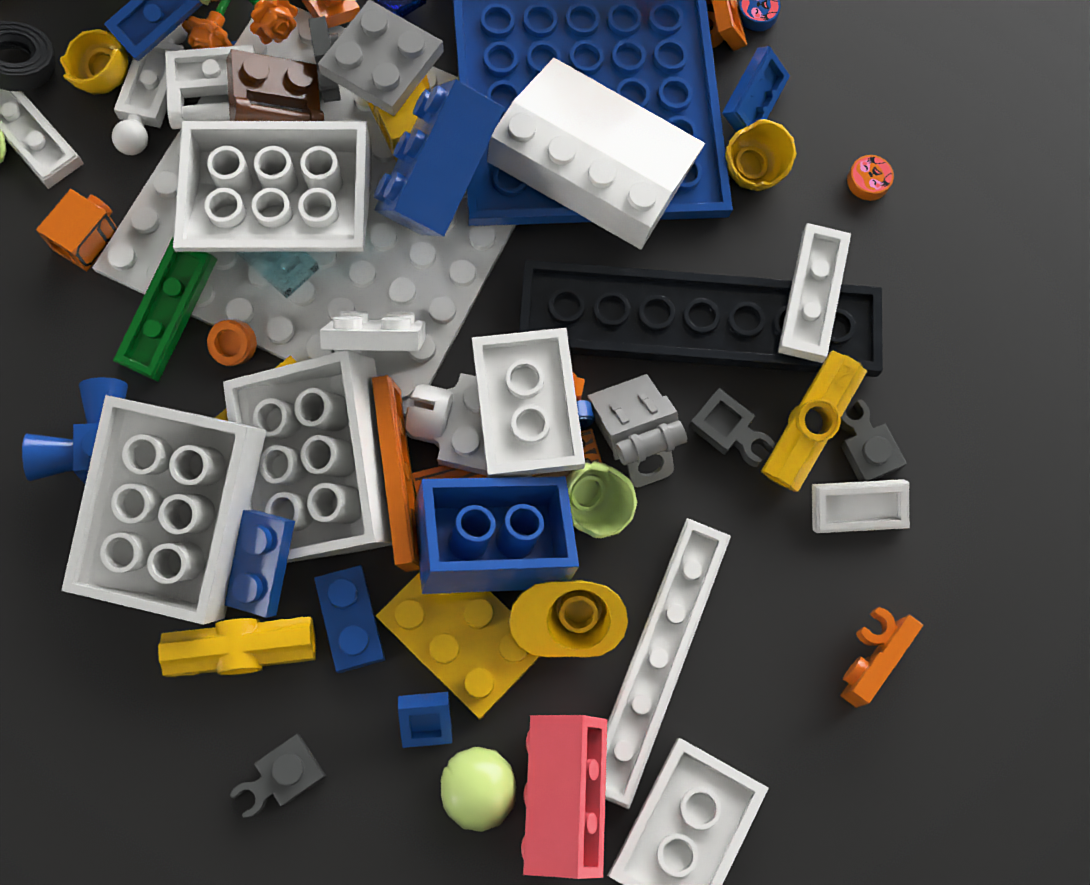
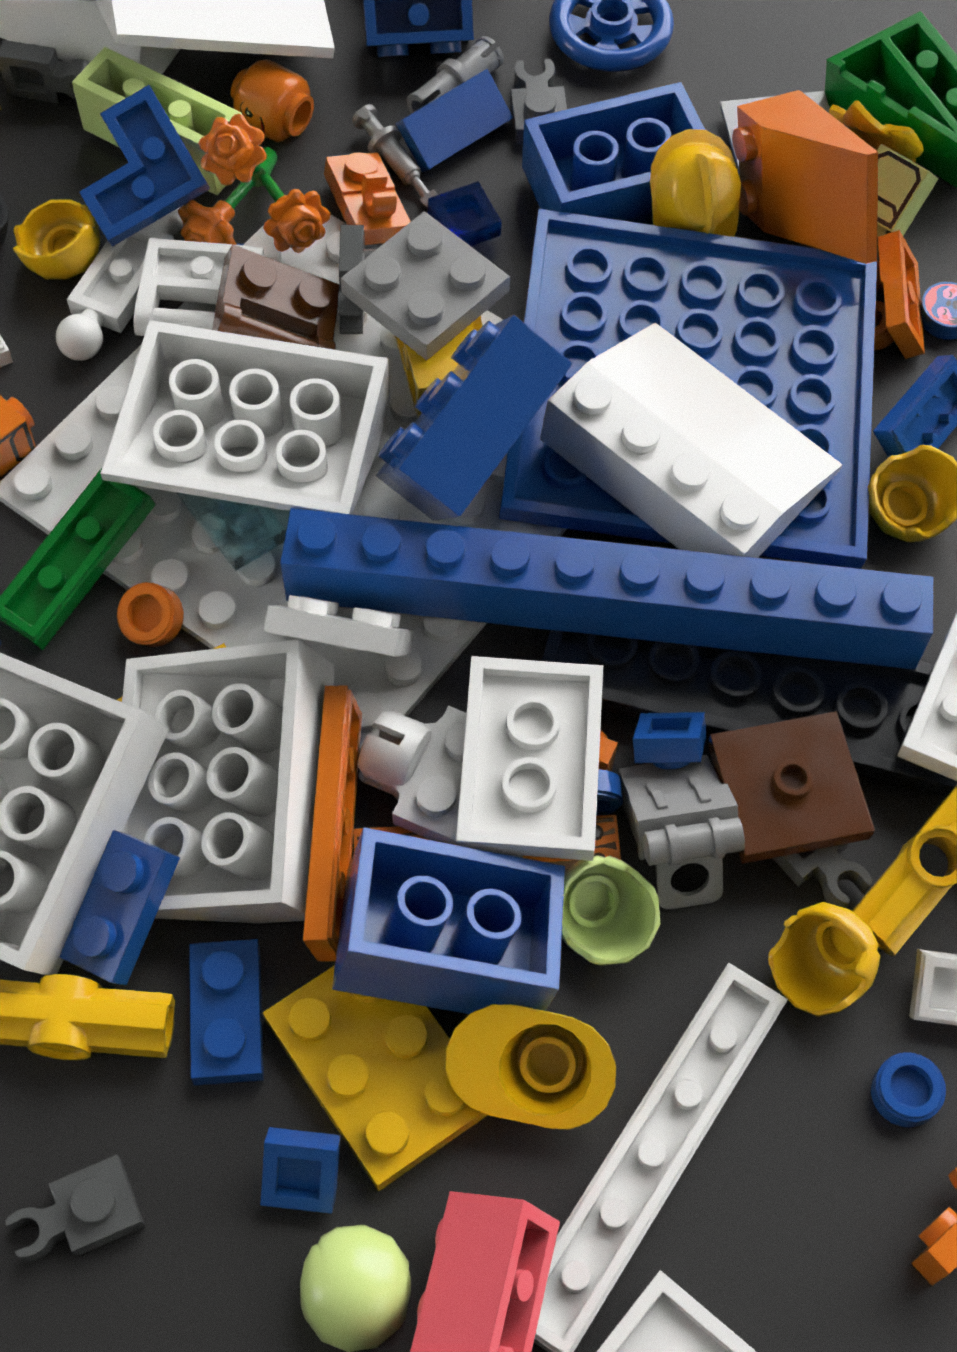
camera: 15 degrees right, 10 degrees down
(554, 267) = (609, 588): none -> blue brick
(620, 368) = (670, 739): none -> blue plate
(710, 386) = (792, 786): none -> reddish brown plate
(752, 505) = (824, 959): none -> yellow hair
(820, 581) = (908, 1089): none -> blue tile

